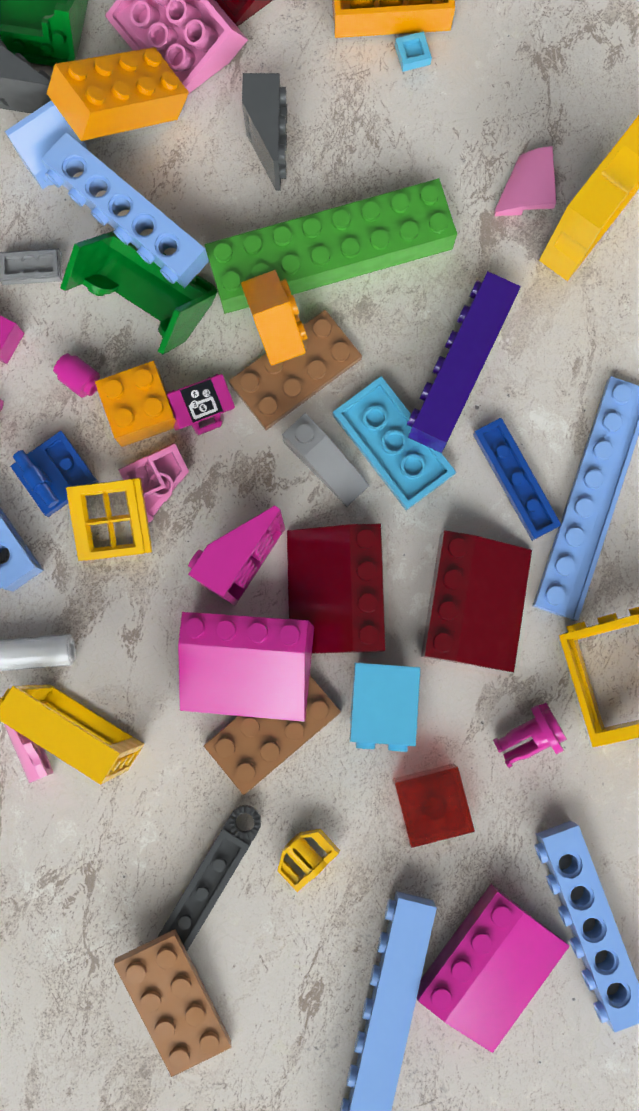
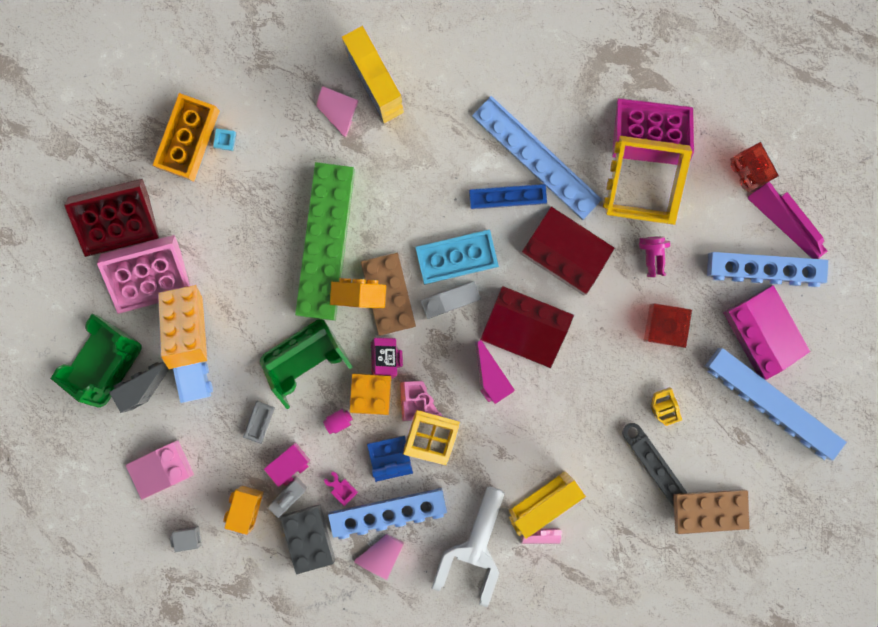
camera: 70 degrees left, 5 degrees up
(70, 157) = (209, 370): light blue brick -> none
(244, 665) = (548, 396): slope -> none
(256, 746) = (588, 395): medium nougat plate -> none
(266, 121) = (229, 247): dark grey slope -> none
(384, 706) = (603, 328): medium azure brick -> none
(463, 363) = (429, 196): dark purple brick -> none

